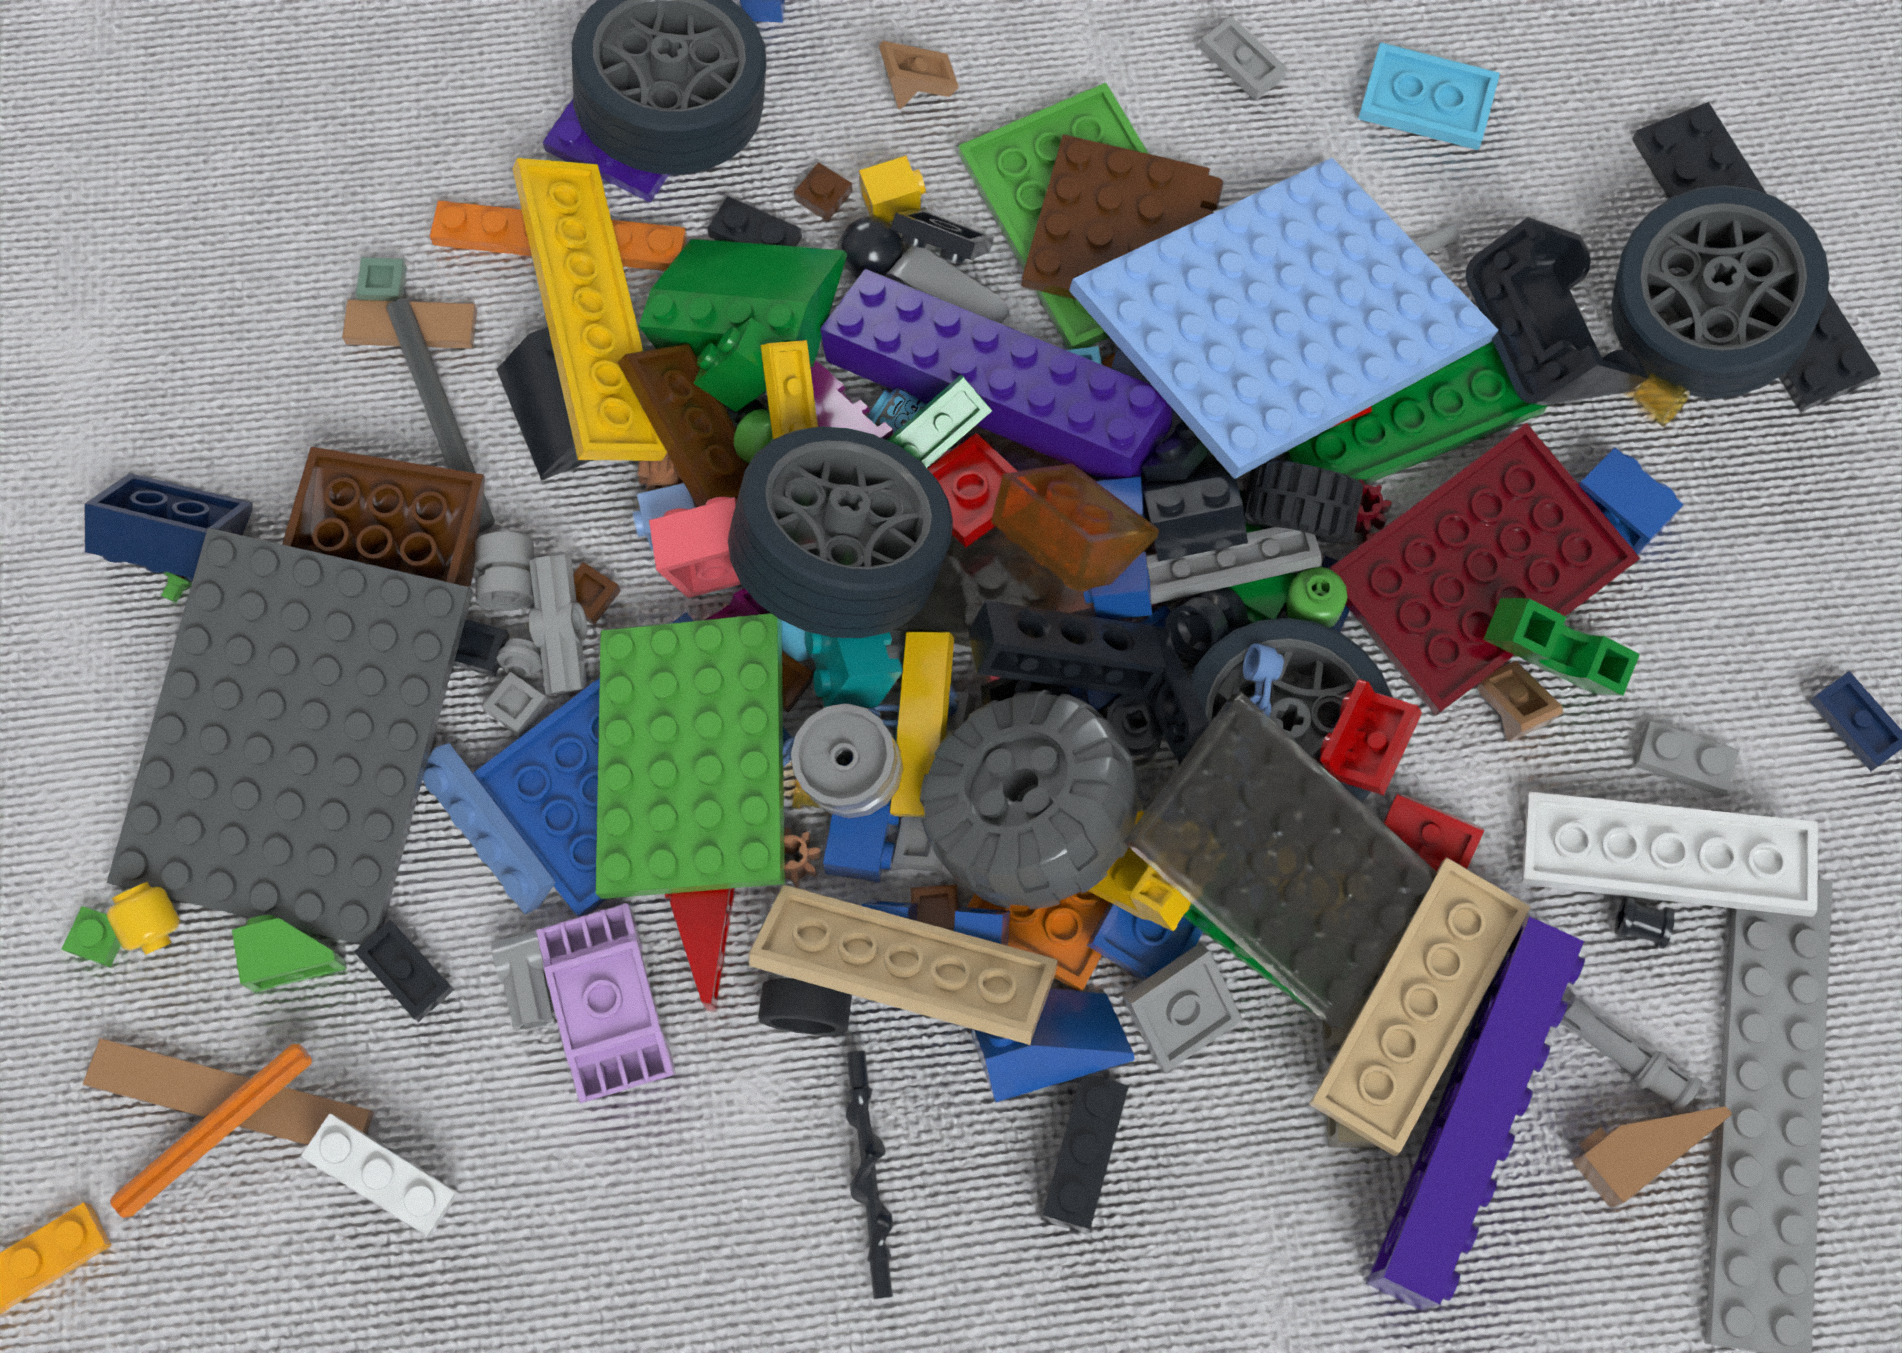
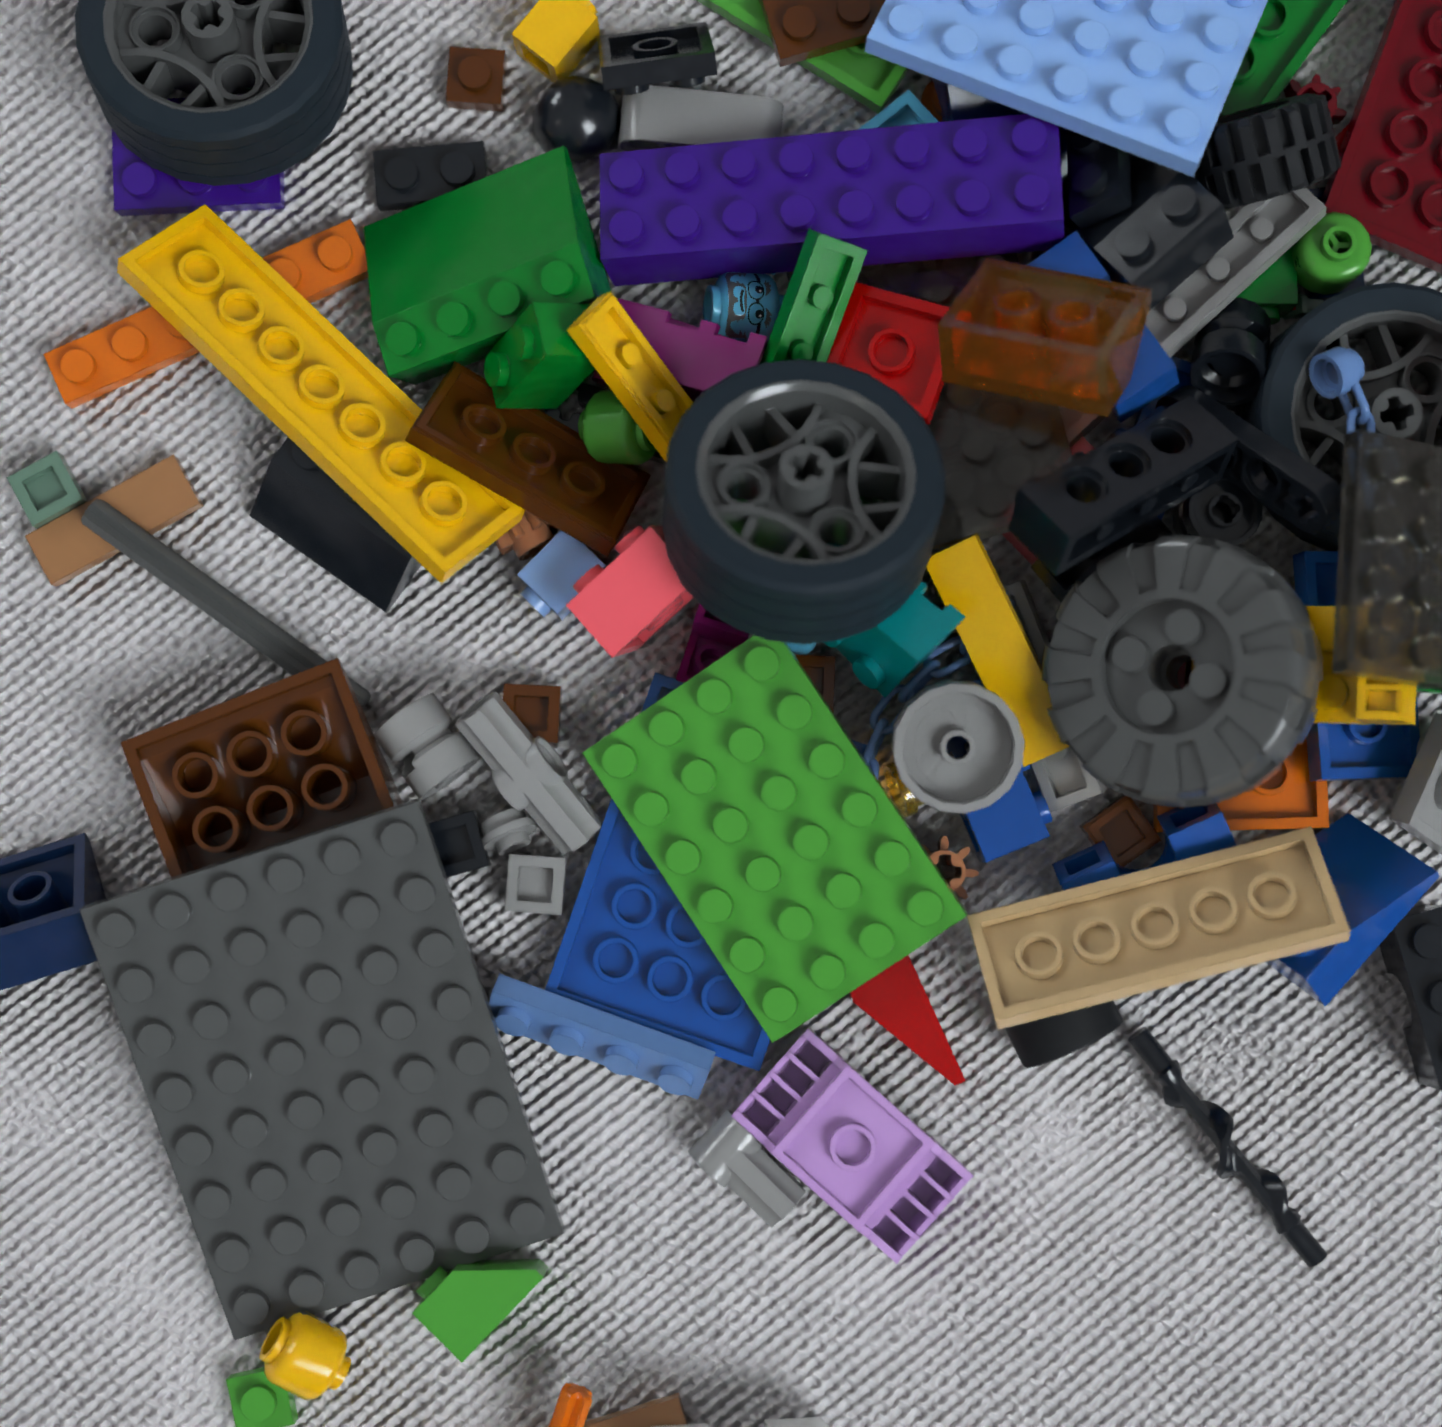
camera: 30 degrees left, 15 degrees up
(175, 587) = (70, 982): bright green piece -> none
(404, 971) = (614, 1236): black plate -> none

